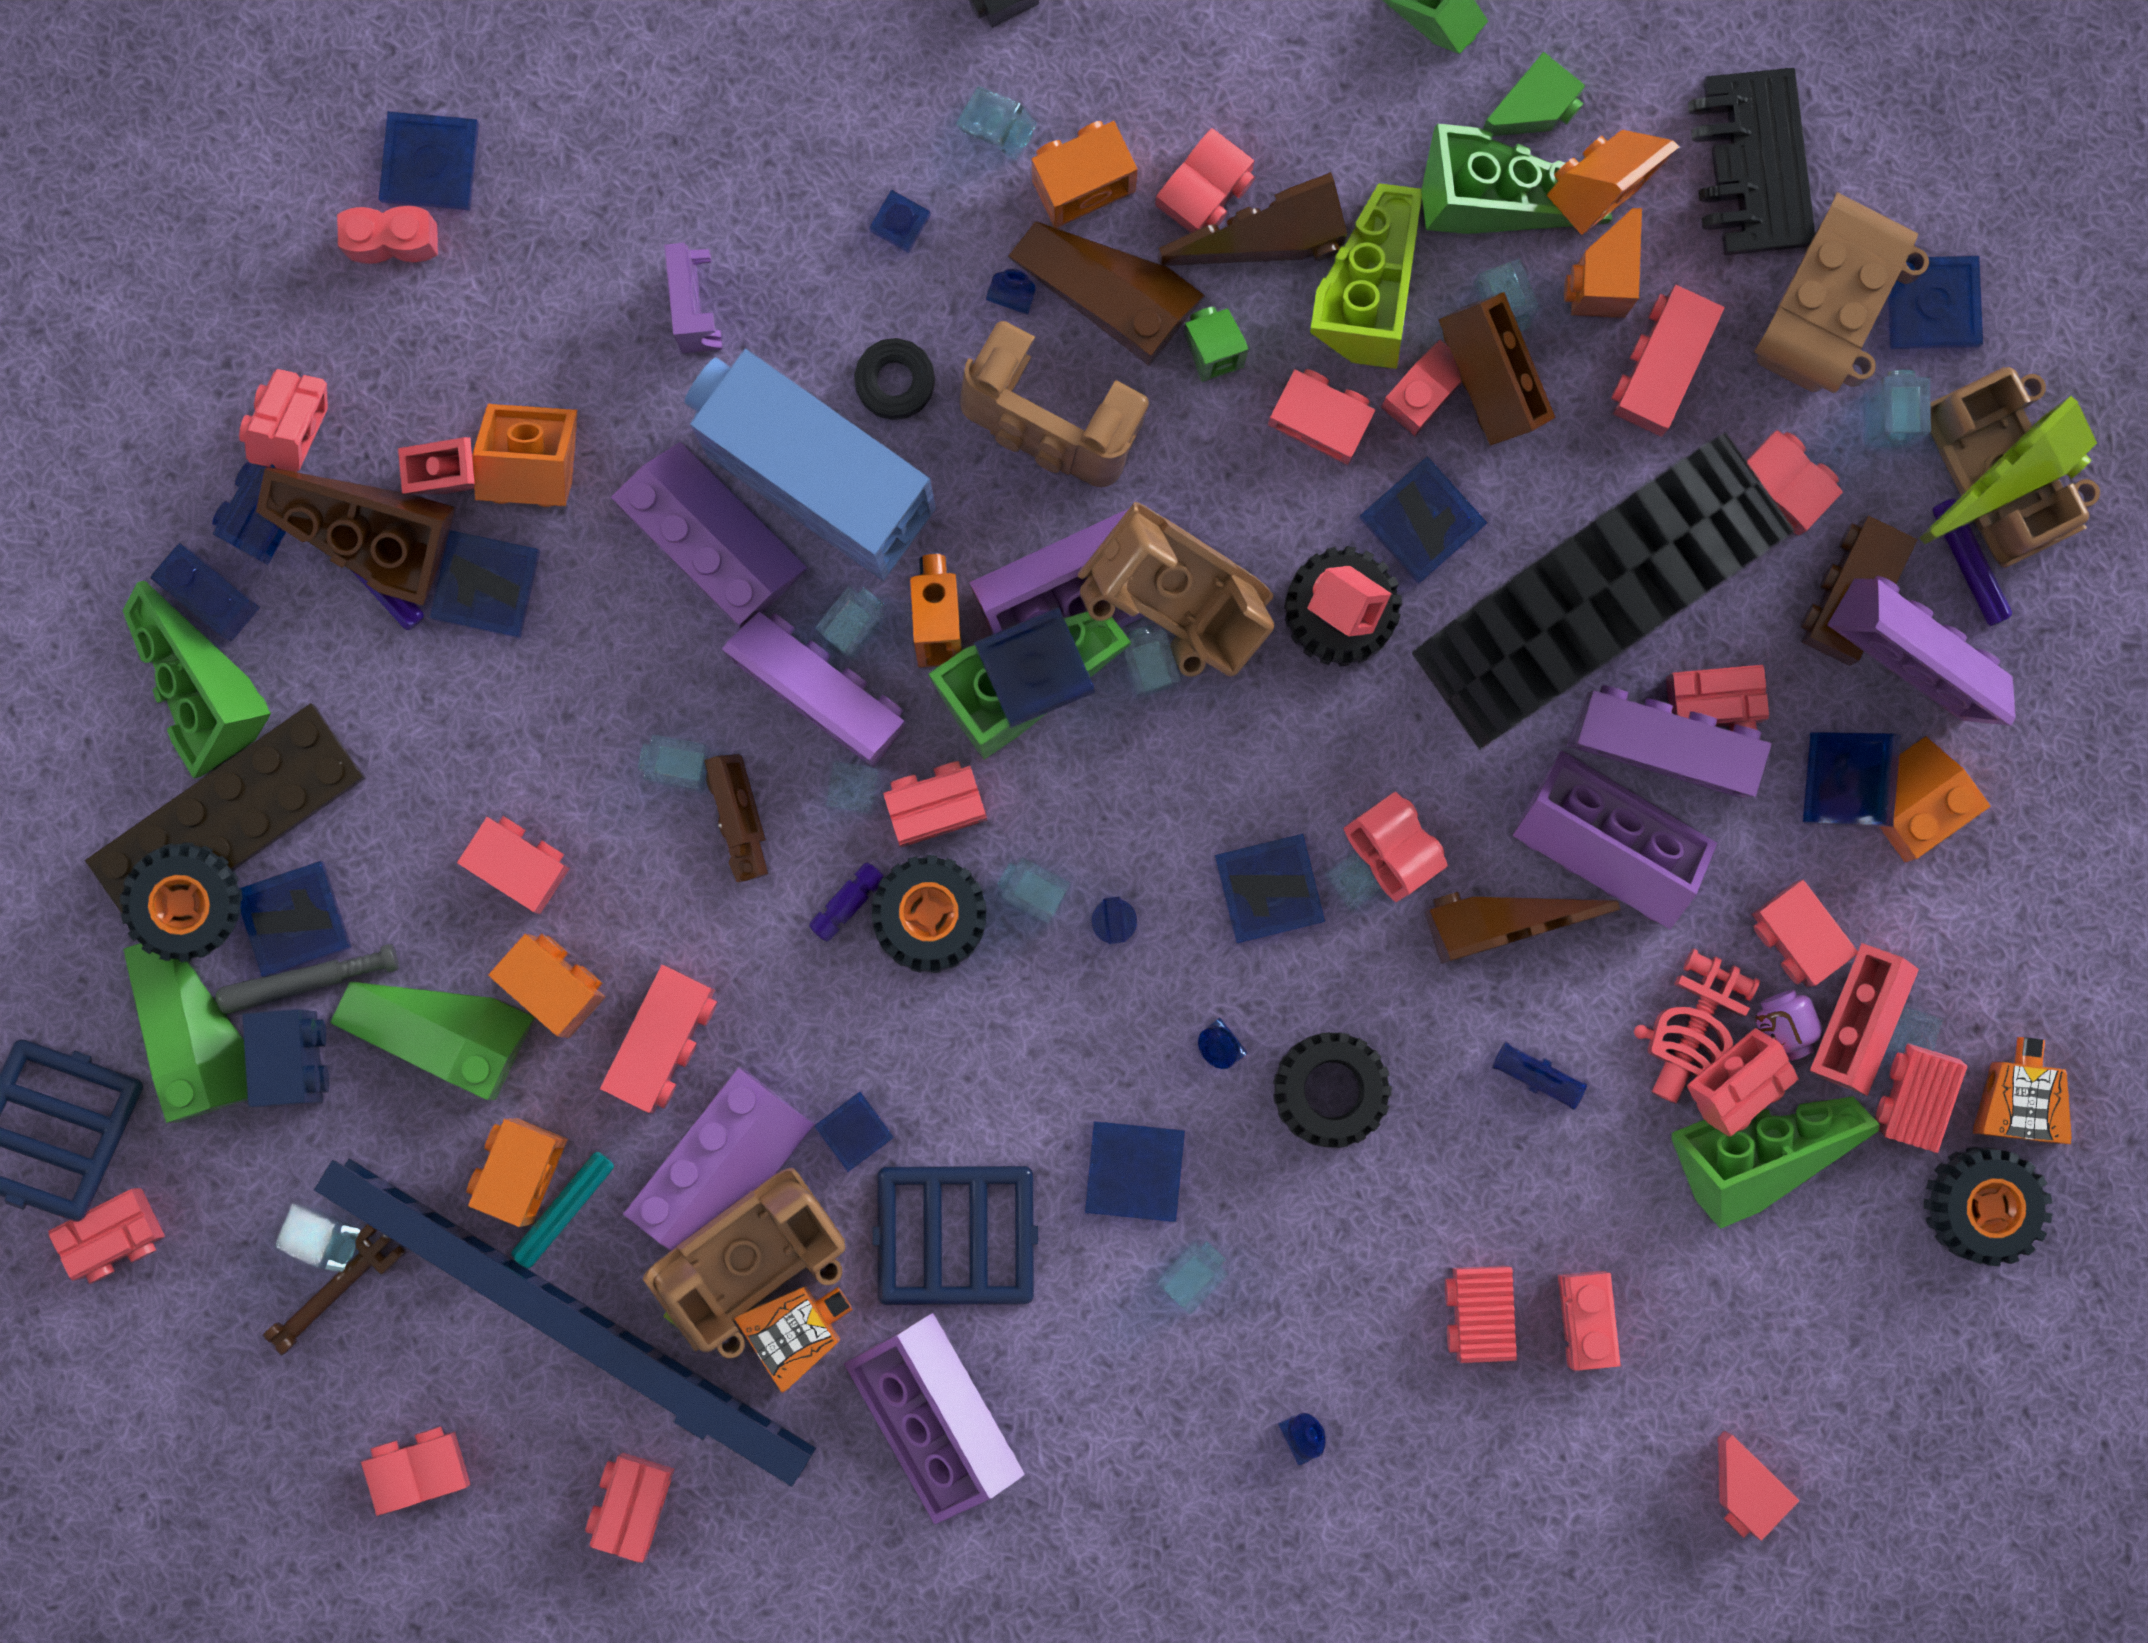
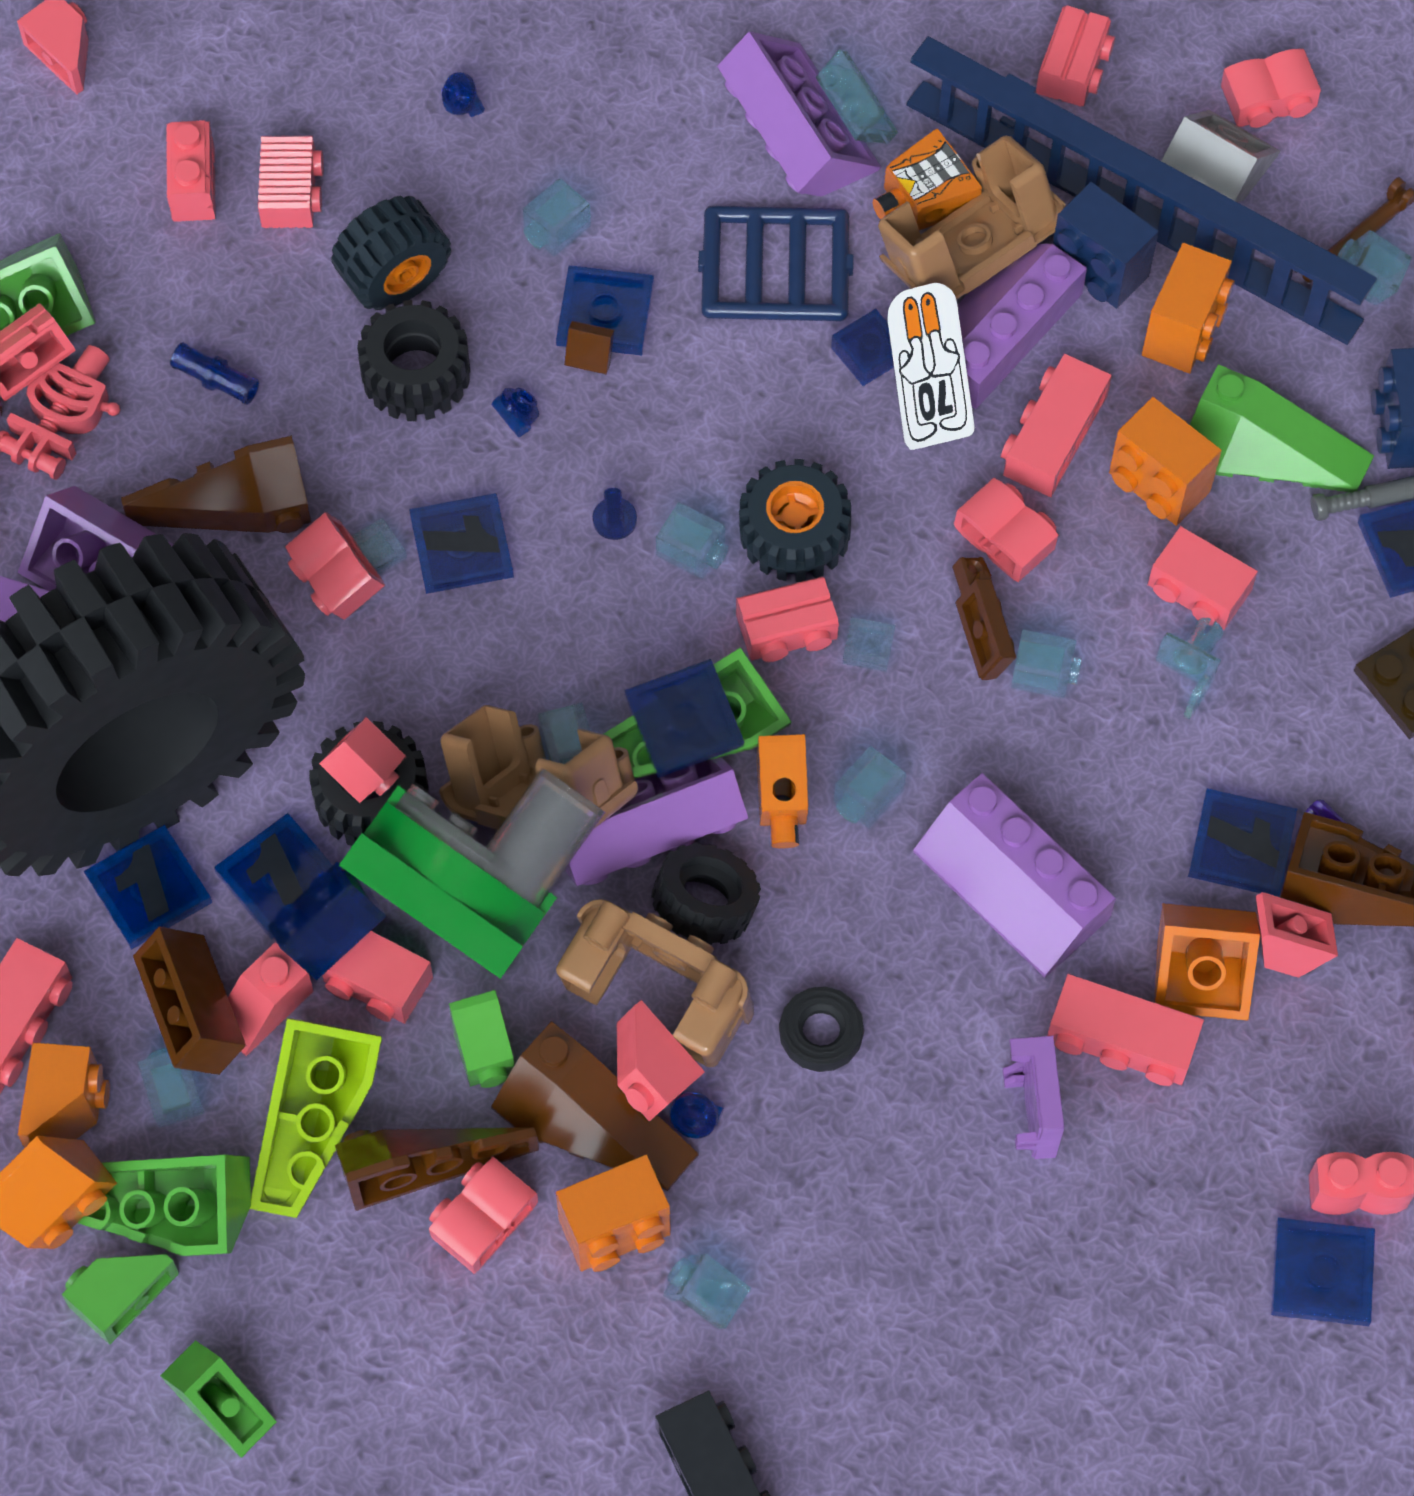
camera: 175 degrees left, 20 degrees down
(473, 1382) = (1219, 154): none -> light grey slope
(526, 776) = (1193, 659): none -> clear light blue bracket
(562, 1210) = (1137, 299): teal axle -> none
(604, 1246) = (1108, 241): none -> dark blue brick
(606, 378) = (1124, 1031): none -> coral brick
(711, 916) = (1006, 529): none -> coral brick
(790, 1093) = (930, 366): none -> sticker
(810, 461) = (908, 901): medium blue brick -> none
(816, 688) = (905, 717): medium lavender slope -> none
(846, 902) = (875, 542): dark purple axle -> none
(871, 1433) = (855, 100): none -> clear light blue bracket
(900, 221) = (813, 1191): clear blue plate -> none
(978, 516) = (715, 868): none -> black tyre
(1053, 315) = (651, 1062): none -> coral slope
(1149, 1116) = (589, 347): none -> reddish brown tile
(1244, 460) = (471, 892): none -> piece
(1364, 1206) = (391, 252): none -> black wheel
(1372, 448) = (326, 920): none -> clear blue slope
(1547, 501) = (147, 886): none -> clear blue tile

